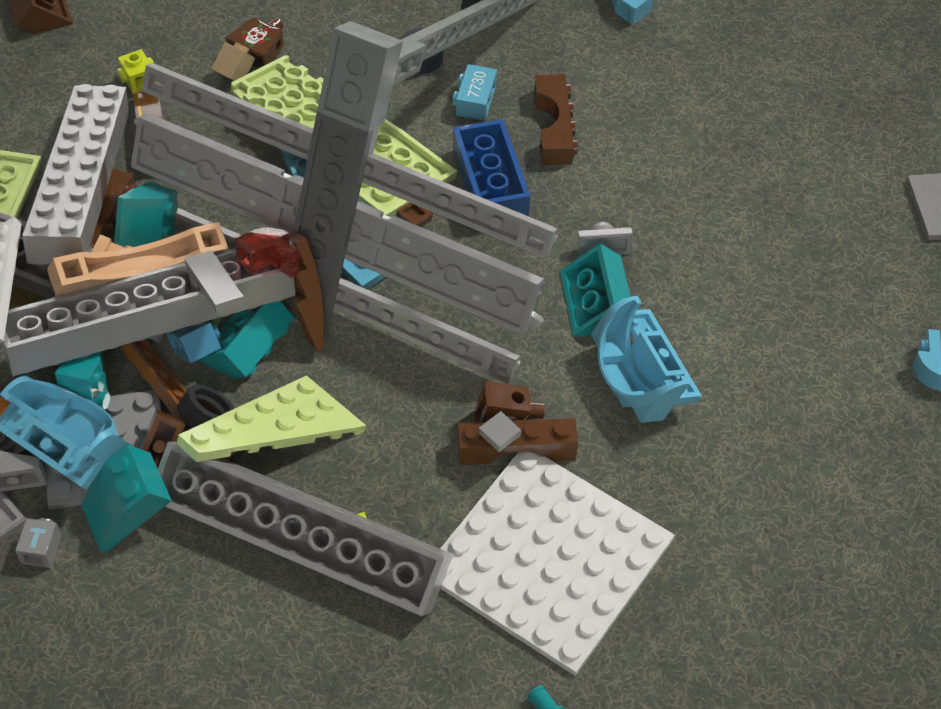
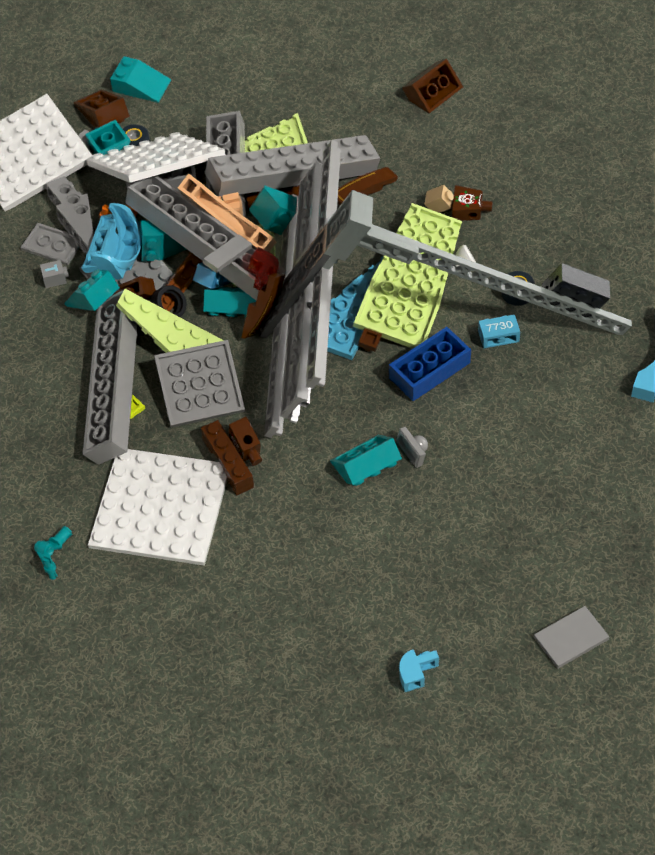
camera: 70 degrees right, 0 degrees up
(132, 67) = (402, 159): neon yellow brick -> none
(375, 426) = (199, 383): none -> light grey plate
(499, 431) = (217, 439): light grey tile -> none
(557, 140) = (483, 391): reddish brown arch -> none
(649, 370) = (314, 495): medium azure piece -> none

